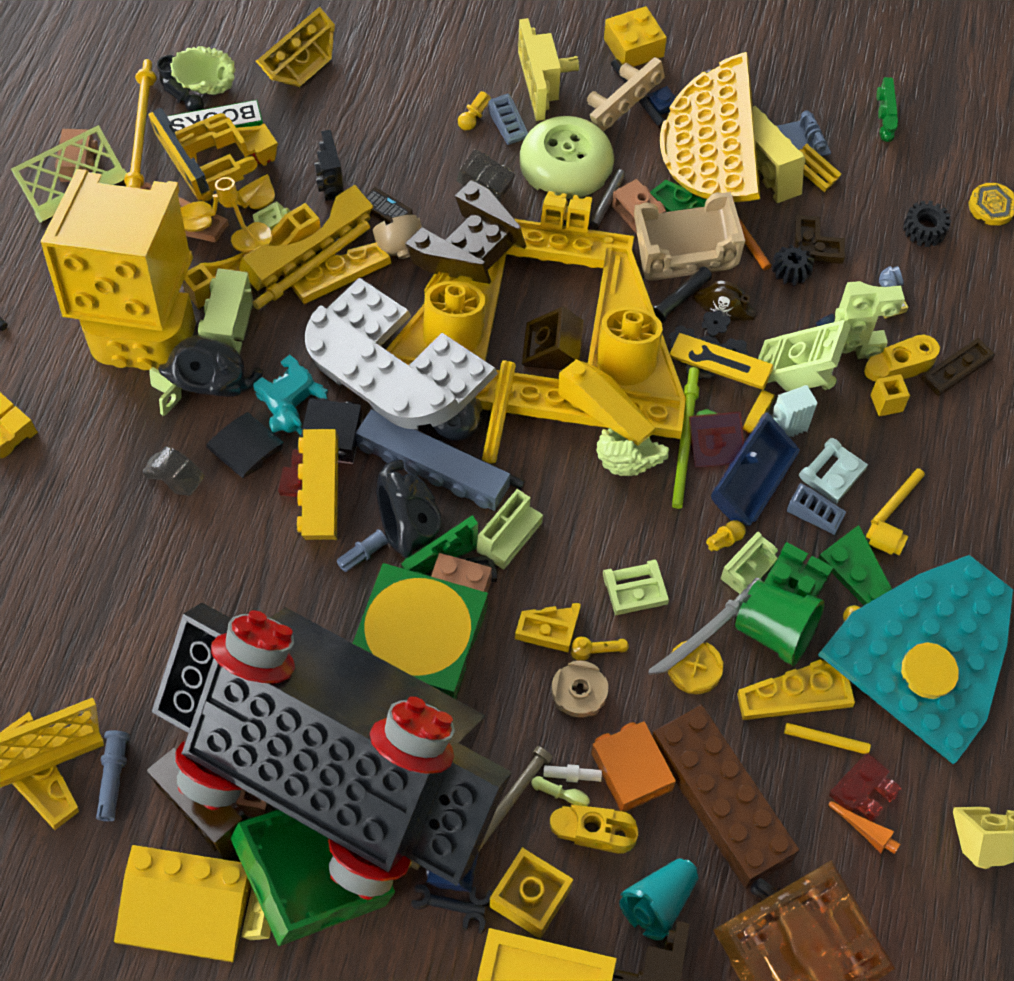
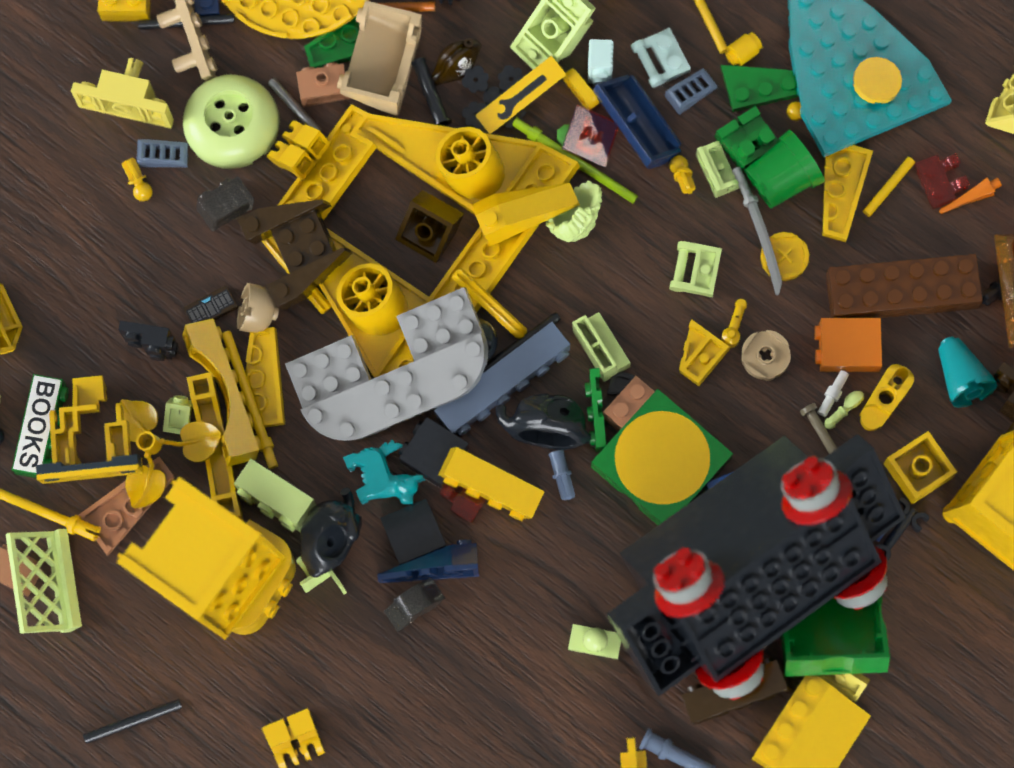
camera: 60 degrees left, 15 degrees up
(226, 482) = (450, 562): none -> dark blue wedge

